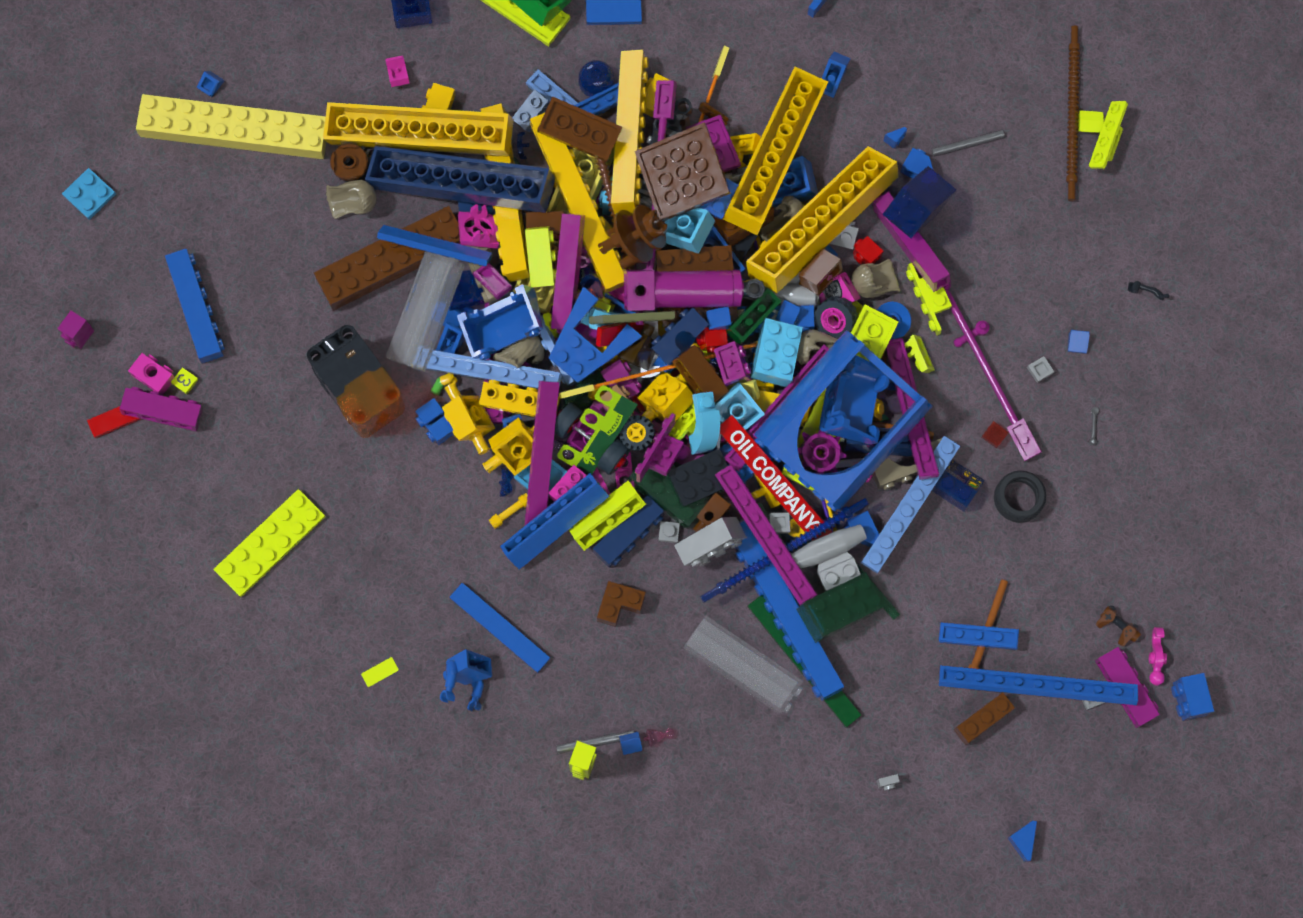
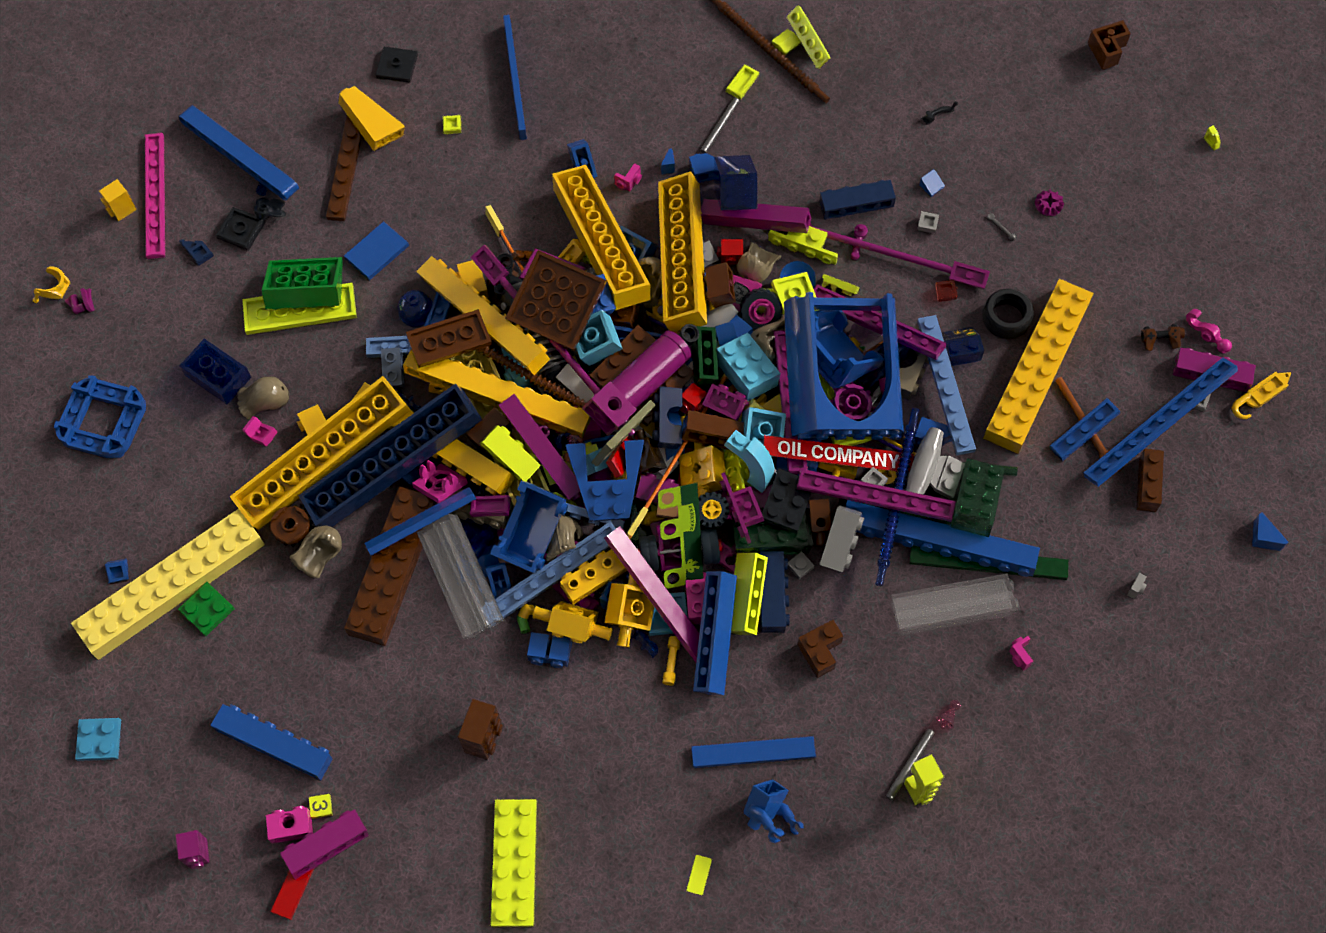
camera: 40 degrees left, 10 degrees down
(241, 168) = (206, 609): none -> green plate
(331, 432) = (480, 729): none -> reddish brown brick
(356, 381) = (458, 669): piece -> none
(424, 45) = (262, 395): none -> dark tan piece
(630, 743) = (936, 738): blue slope -> none
(636, 234) = (561, 377): reddish brown piece -> none
(719, 318) = (684, 378): blue slope -> none
(749, 747) = (1020, 656): none -> dark pink bracket
(853, 124) = (627, 182): none -> dark pink bracket
(999, 556) = (1038, 366): none -> yellow brick
(1006, 300) = (857, 199): none -> dark blue brick
(1023, 123) = (742, 82): none -> neon yellow tile
(1143, 739) = (1262, 393): none -> yellow plate
(1151, 451) = (1042, 205): none -> magenta gear
(1192, 697) = (1262, 333): blue brick -> none

